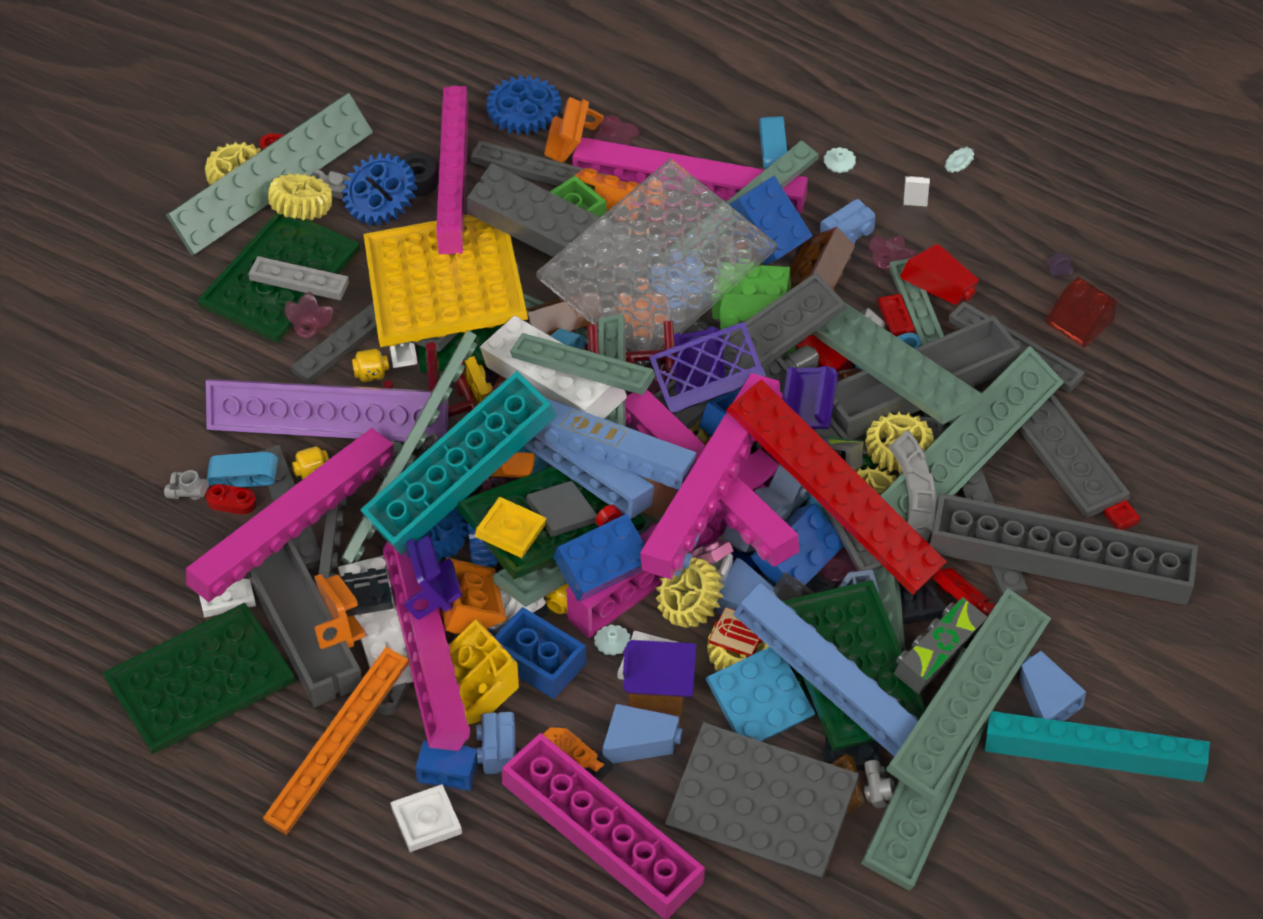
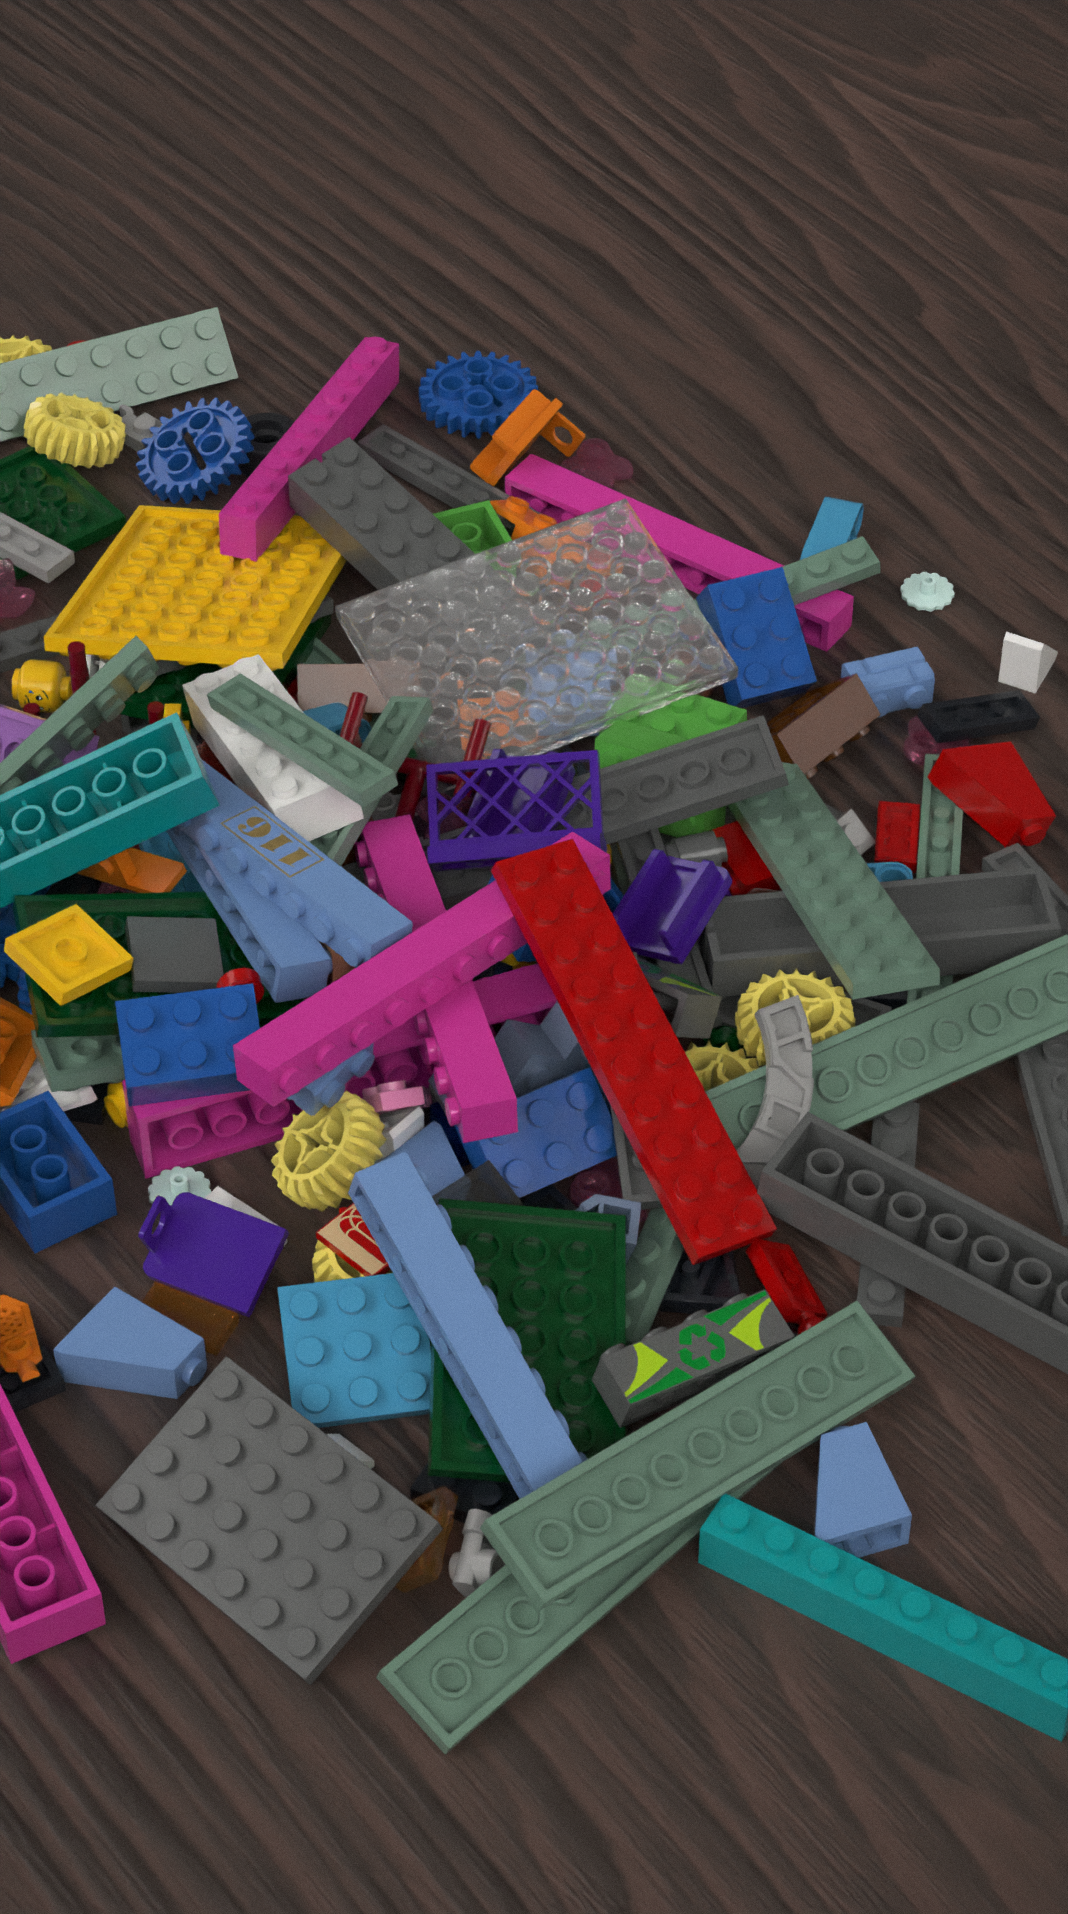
camera: 20 degrees right, 5 degrees down
(908, 231) = (978, 716): none -> black plate

